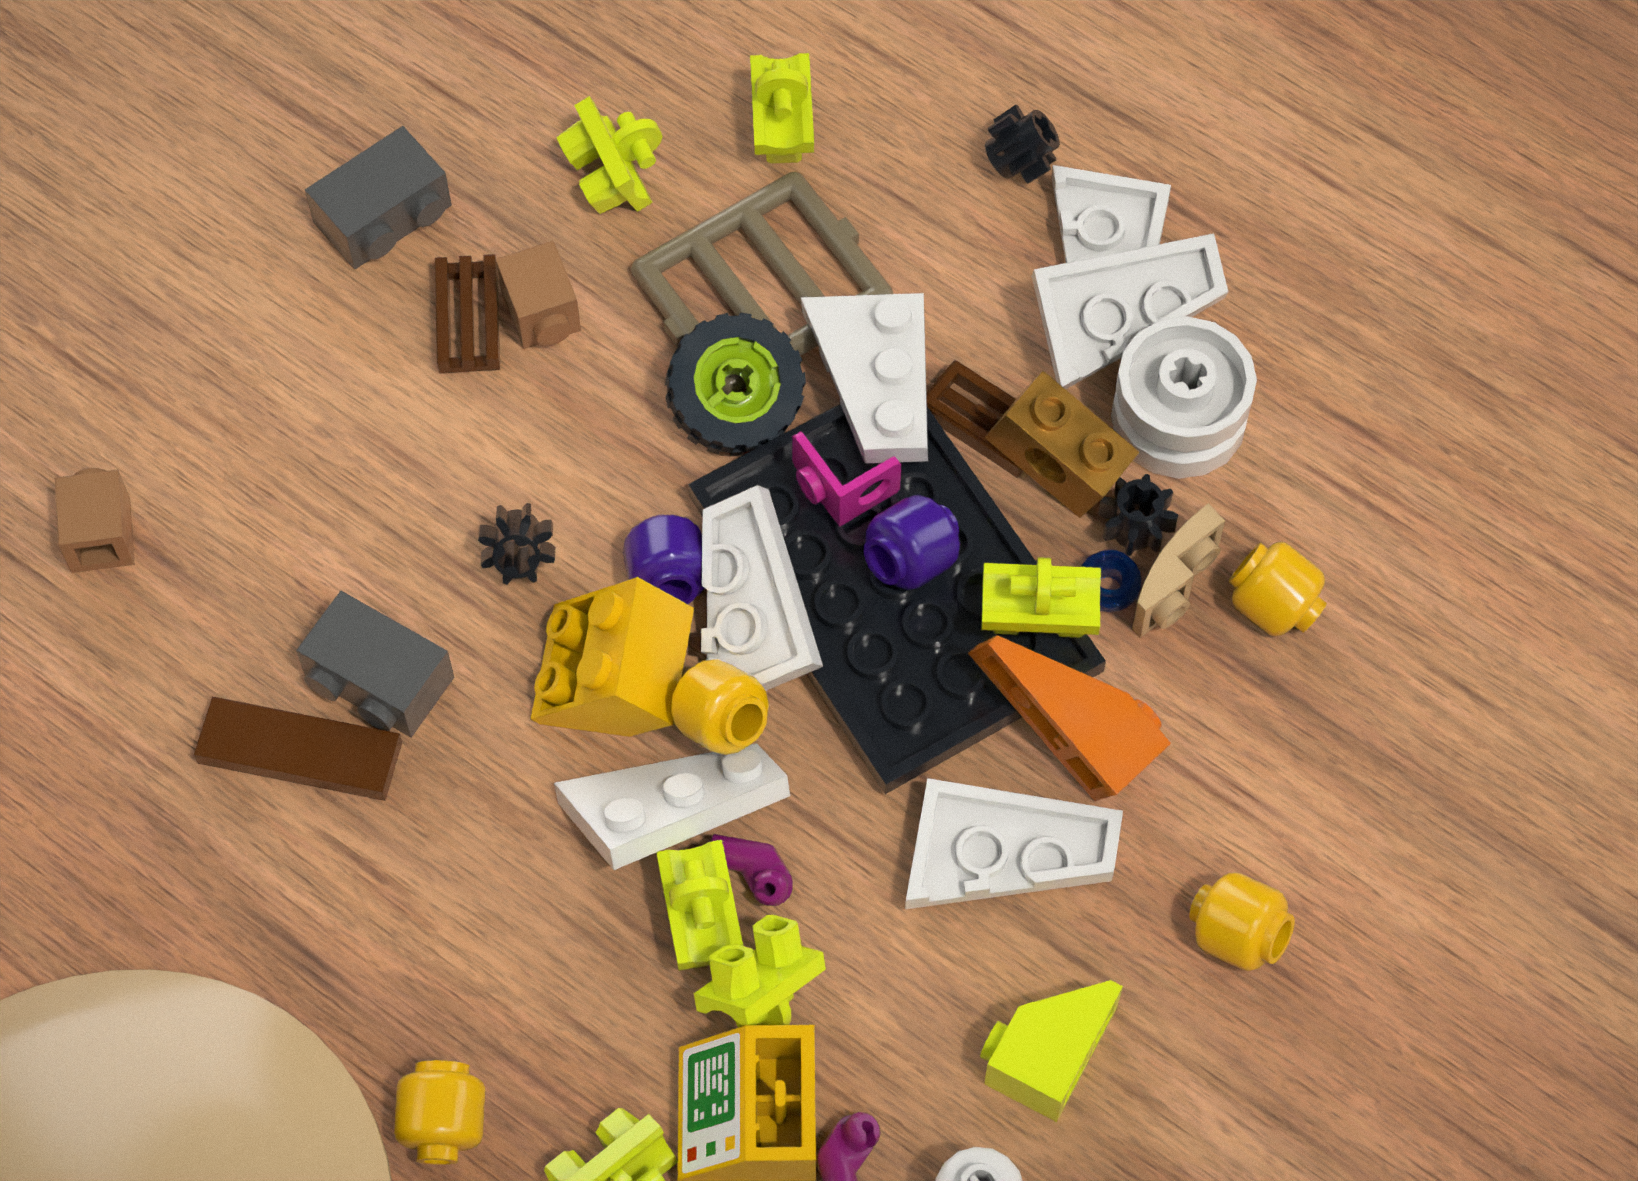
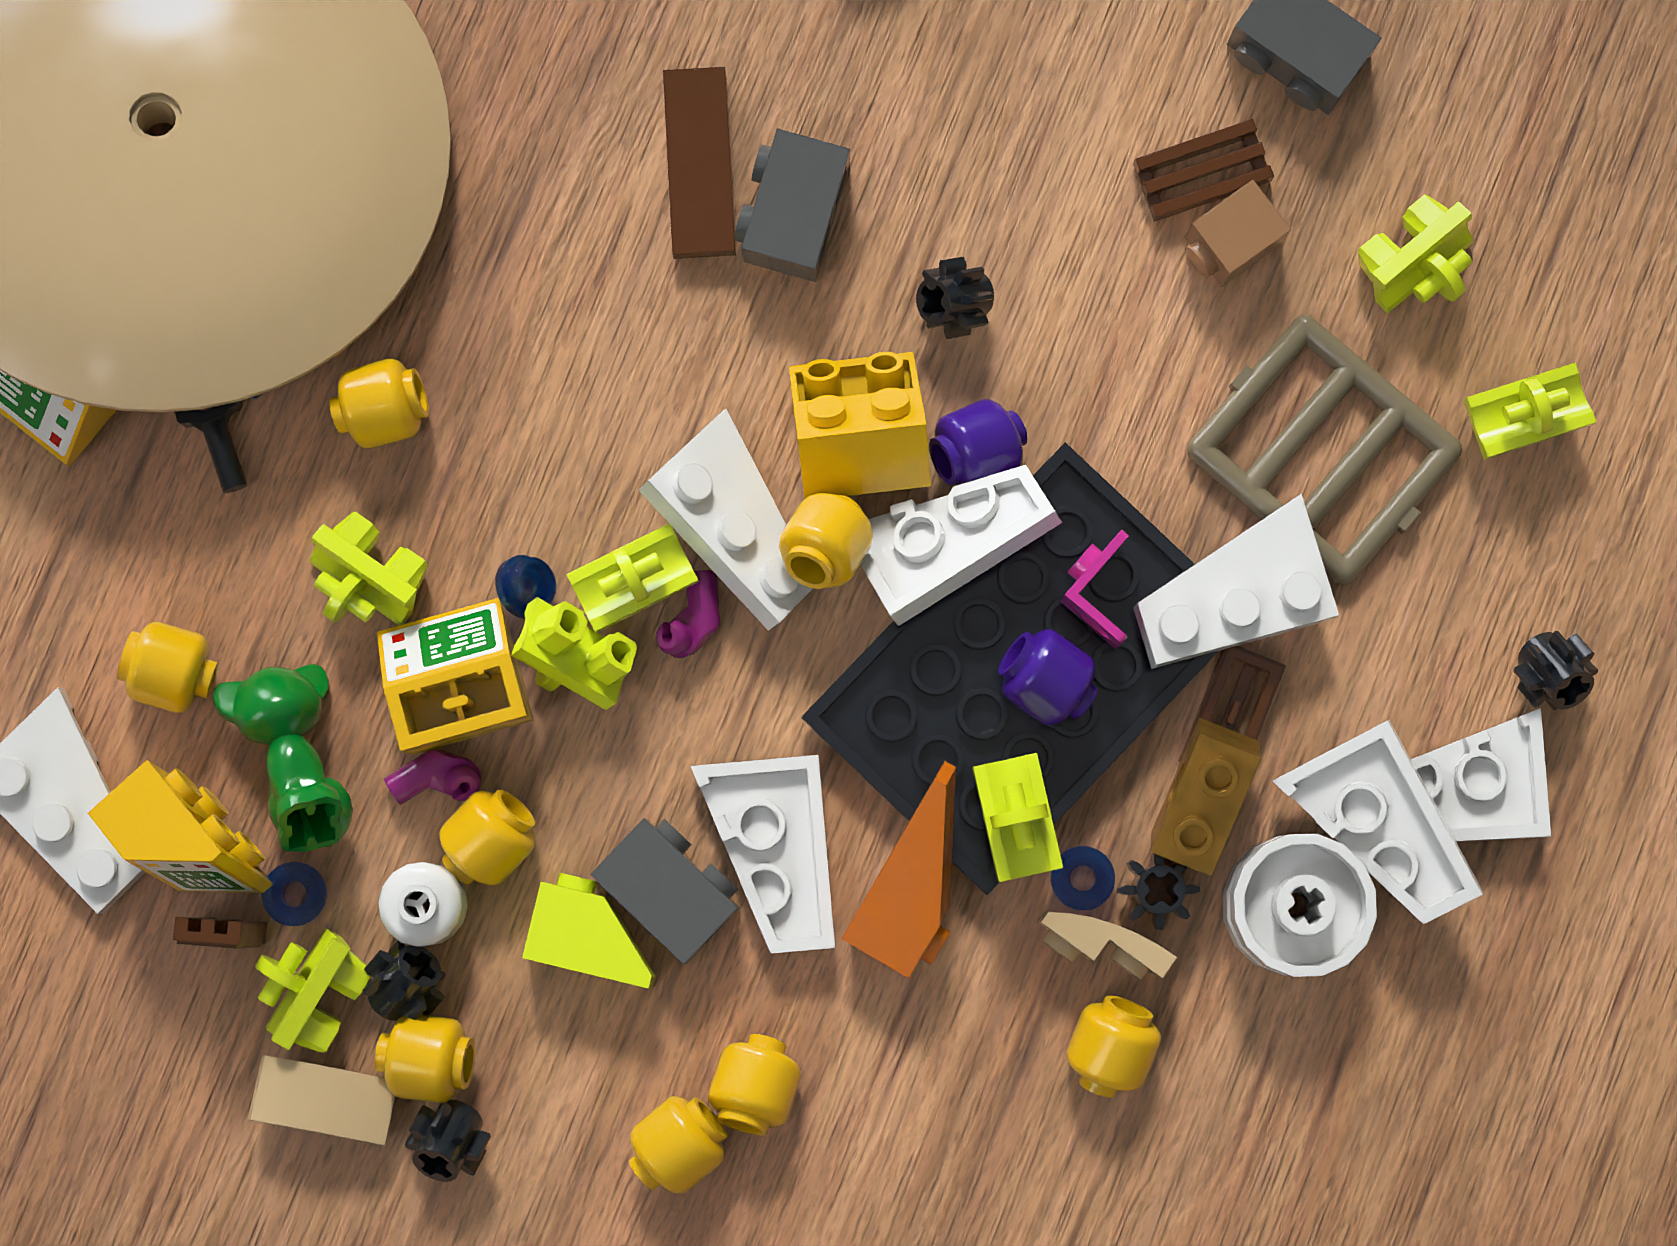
camera: 75 degrees right, 20 degrees up
(673, 1018) = (521, 581): none -> clear blue plate
(739, 419) = (1220, 446): black wheel -> none
(925, 1118) = (487, 837): none -> yellow head
(1024, 954) = (667, 889): none -> dark grey brick
(1285, 1008) = (677, 1145): none -> yellow head

